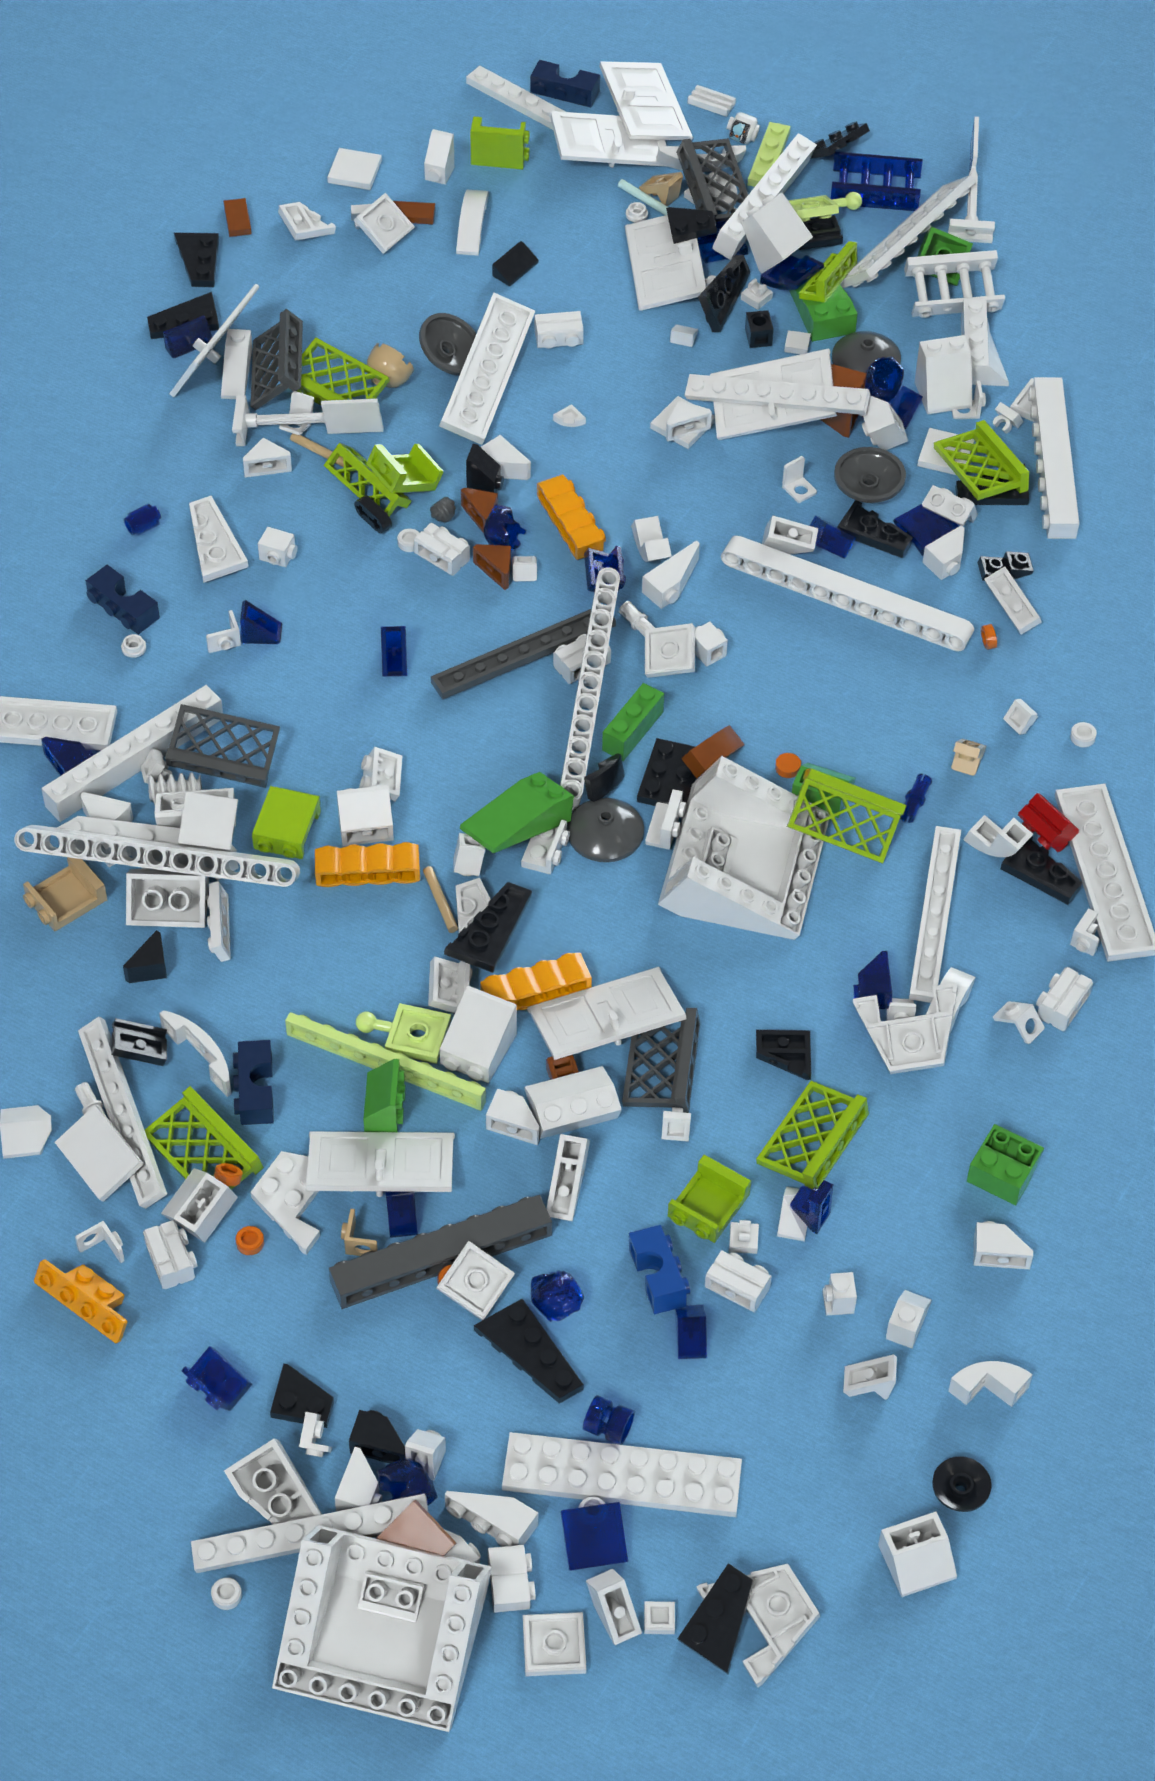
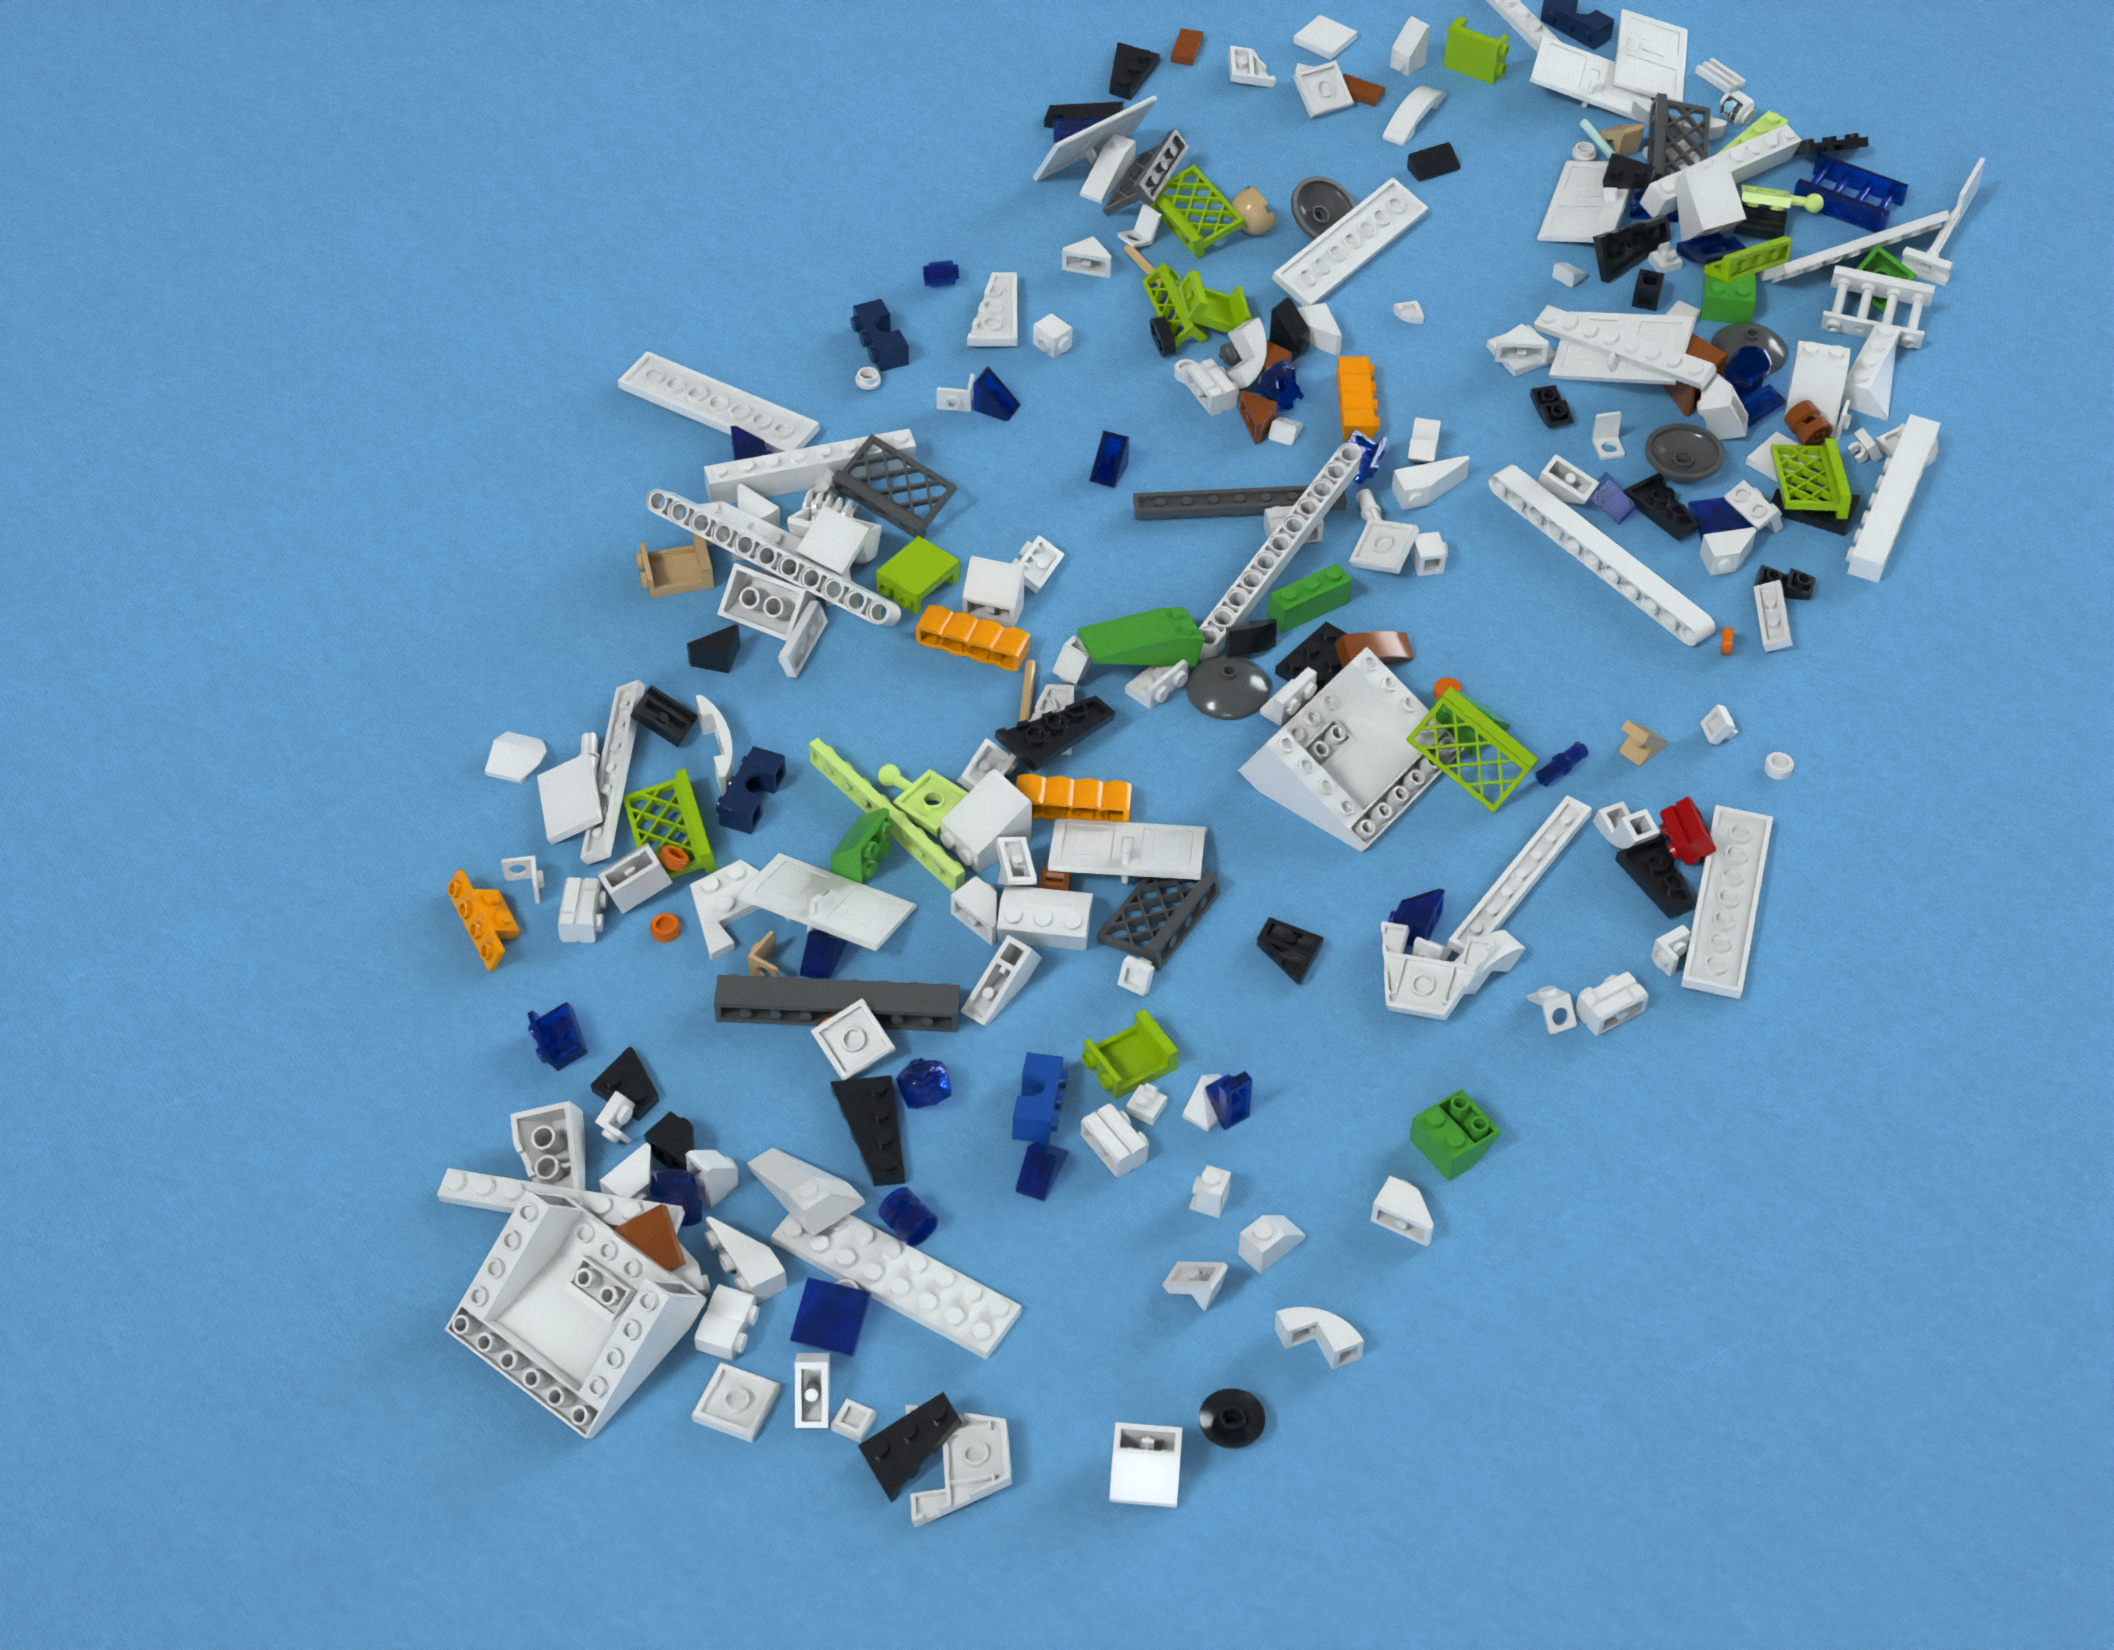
camera: 25 degrees right, 5 degrees down
(226, 1593) = (454, 1229): white tile -> none
(338, 415) = (1179, 239): white piece -> none
(461, 500) = (1251, 346): none -> white brick
(514, 1433) = (805, 1191): none -> white wedge
(525, 1064) = (1015, 861): none -> white slope
(558, 329) = (1442, 230): white brick -> none
(734, 469) = (1550, 407): none -> black slope
(835, 1140) = (1285, 1050): lime fence -> none
(946, 412) = (1807, 424): none -> dark orange wheel

